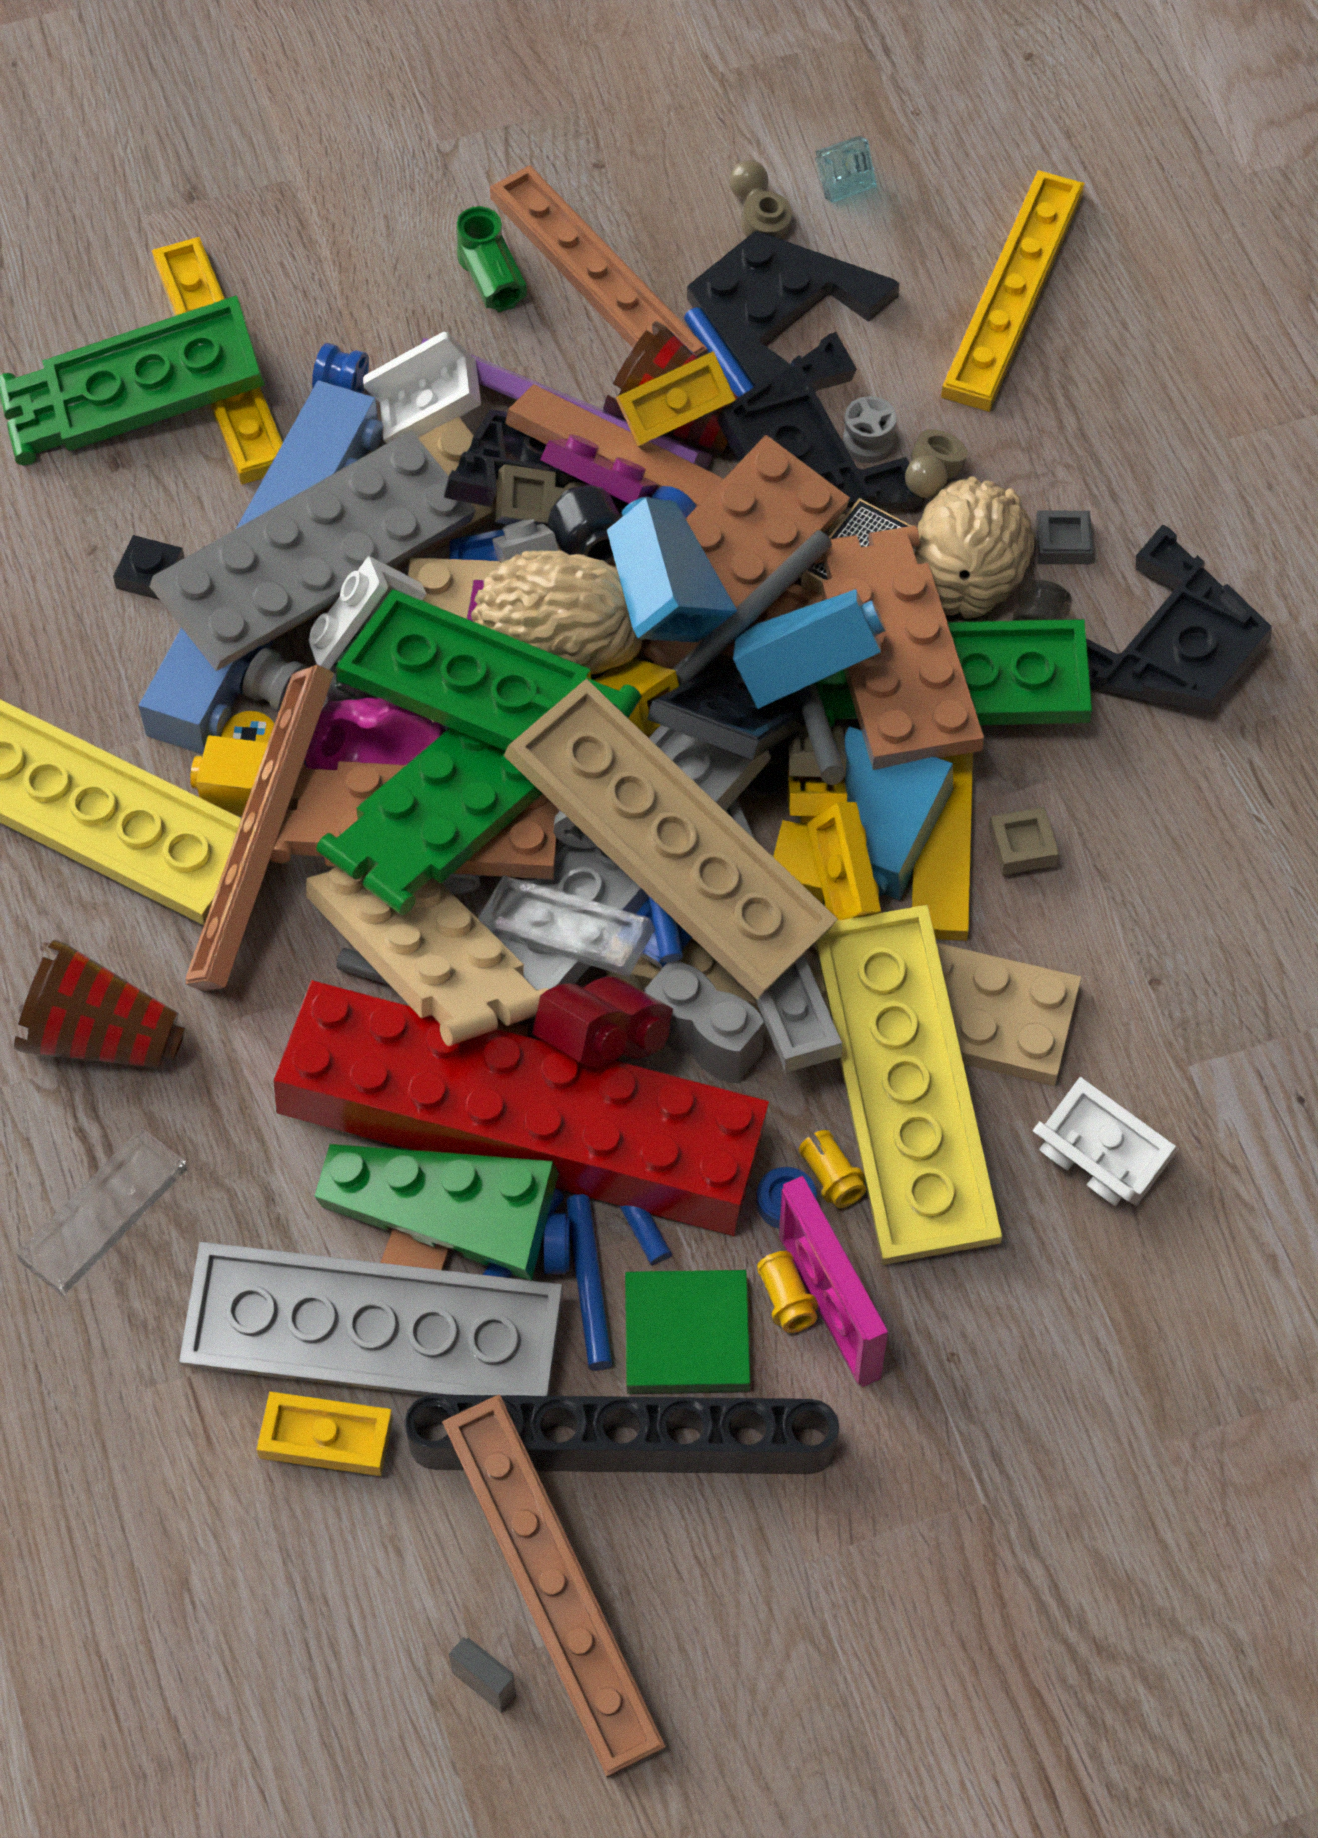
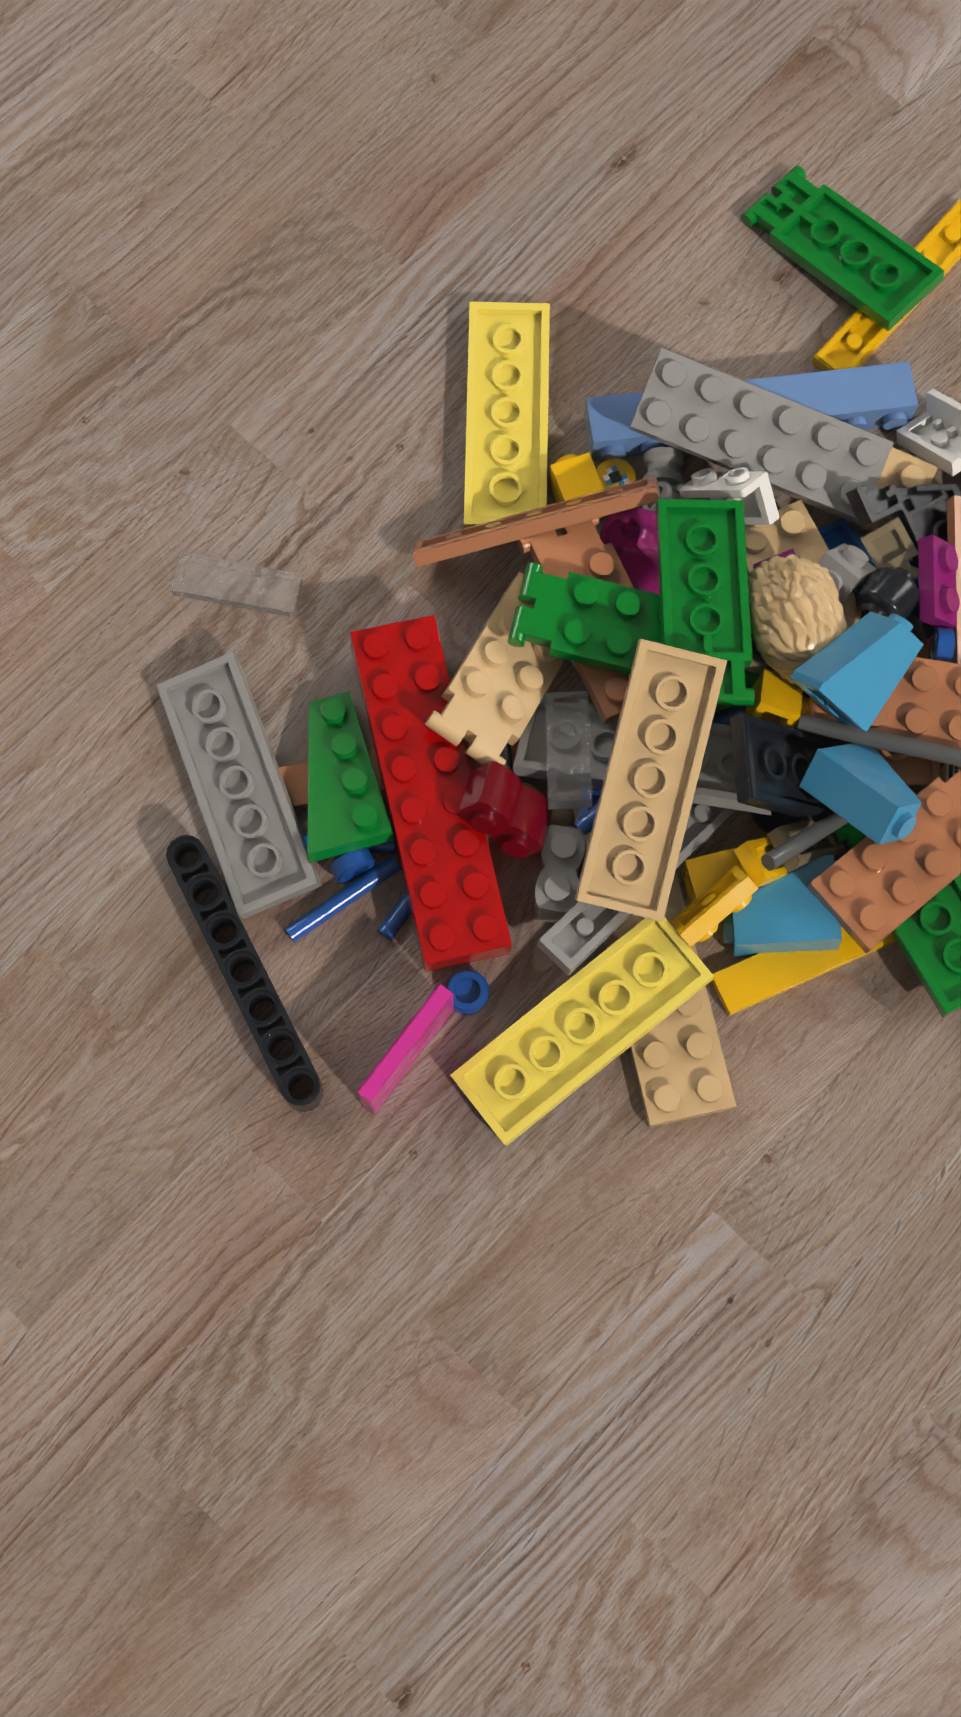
camera: 60 degrees right, 15 degrees up
(94, 1015) = (355, 500): reddish brown cone -> none
(141, 562) = (708, 343): black plate -> none
(325, 1433) = (156, 795): yellow plate -> none
(341, 368) = (933, 371): blue wheel -> none
(483, 1673) = (49, 970): dark grey tile -> none
(554, 1586) = (121, 981): nougat tile -> none
(687, 1331) = (339, 976): green tile -> none
(791, 1303) = (388, 1031): yellow pin -> none
(840, 1180) = (500, 1011): yellow pin -> none
(1023, 841) = (822, 1017): dark tan plate -> none
(1105, 1142) = (611, 1180): white bracket -> none

